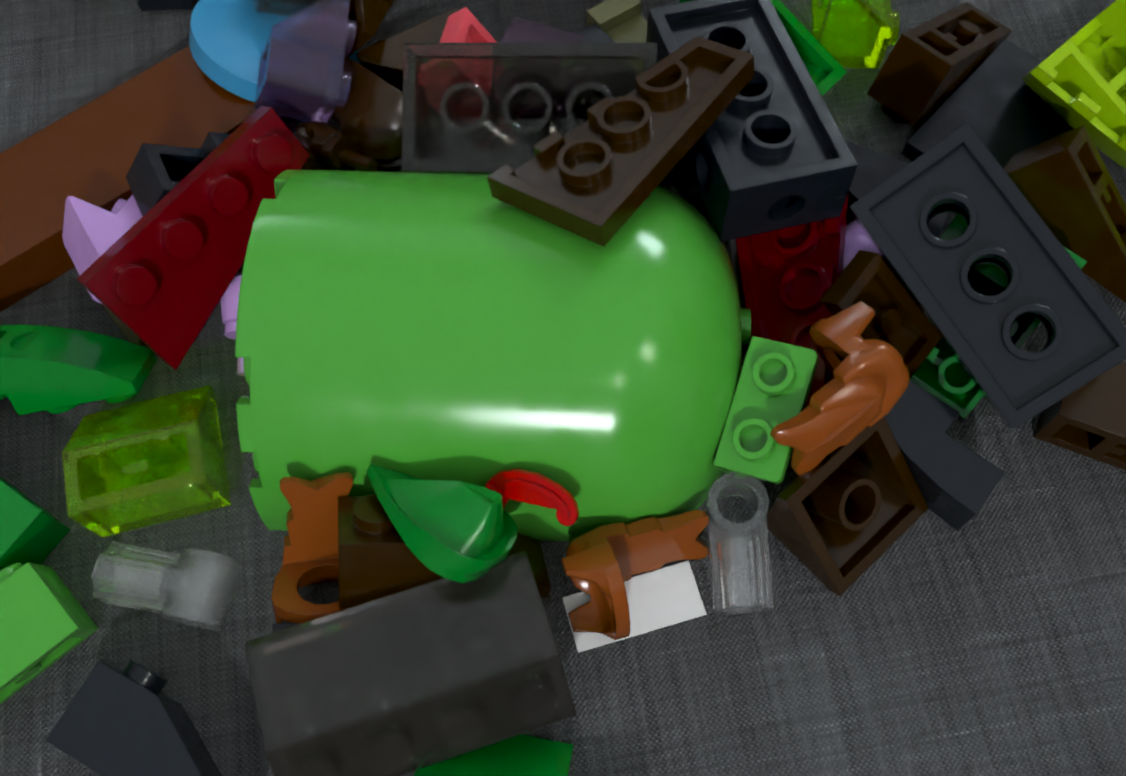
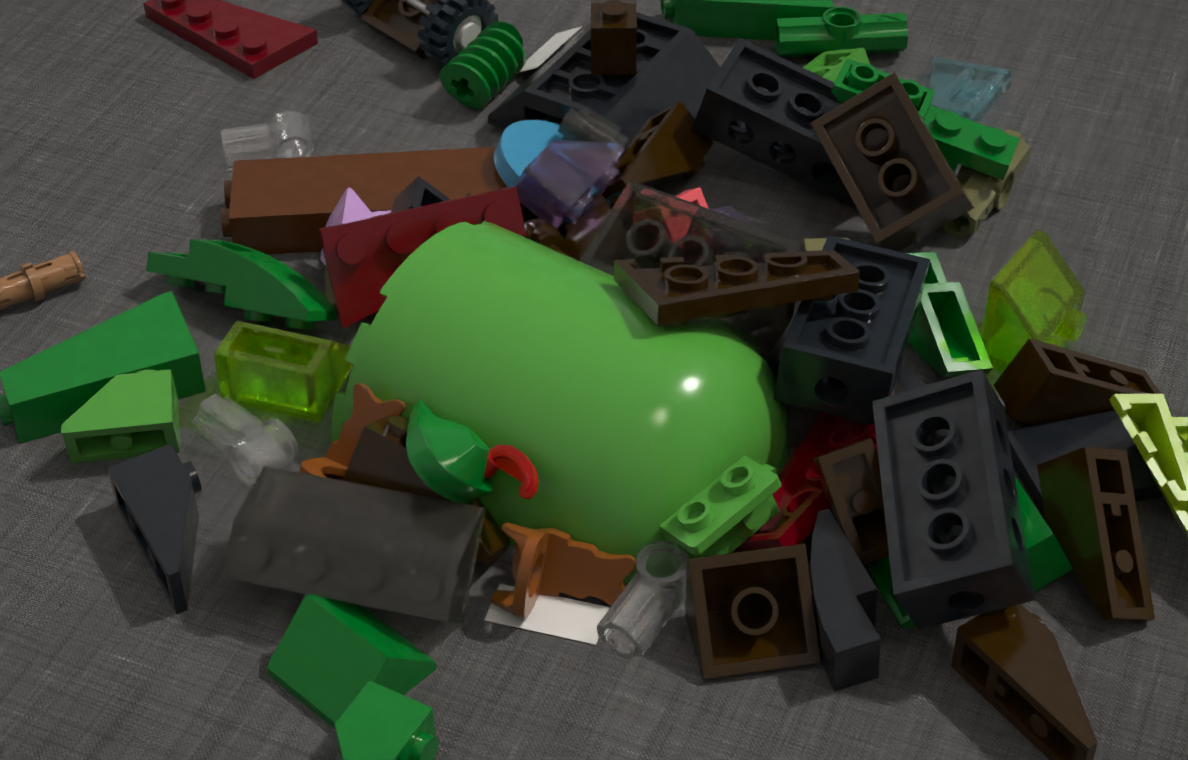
camera: 30 degrees right, 25 degrees down
(857, 397) = (791, 510): dark orange hair -> none

